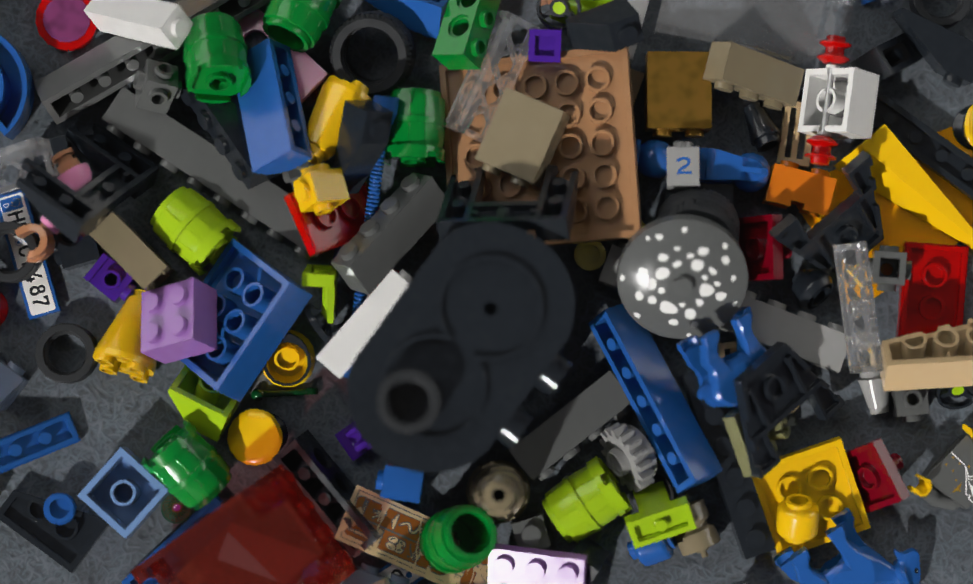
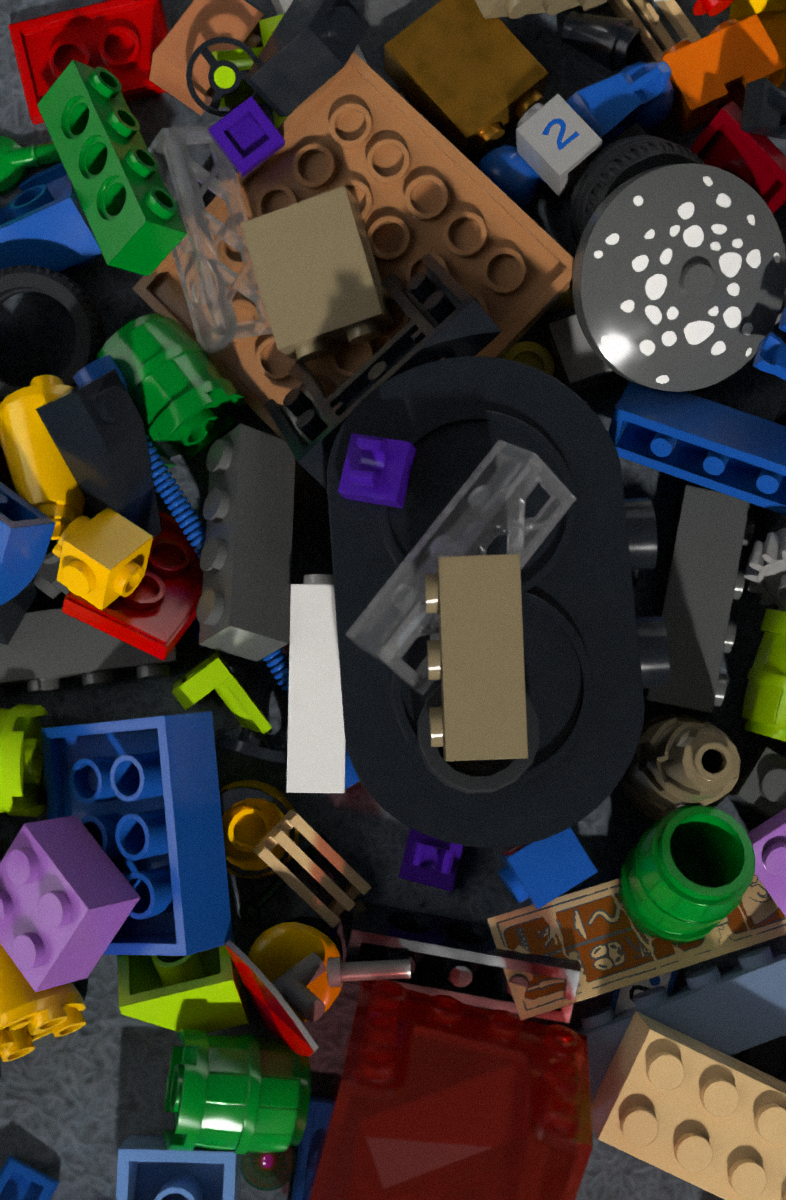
camera: 40 degrees left, 5 degrees down
(237, 441) = (271, 998): none -> shield
(284, 460) = (366, 970): none -> light grey piece
(302, 424) = (342, 898): none -> tan tile
(429, 372) = (478, 658): none -> dark tan brick
(459, 322) = (483, 508): none -> clear fence
(461, 259) = (377, 470): none -> dark purple tile

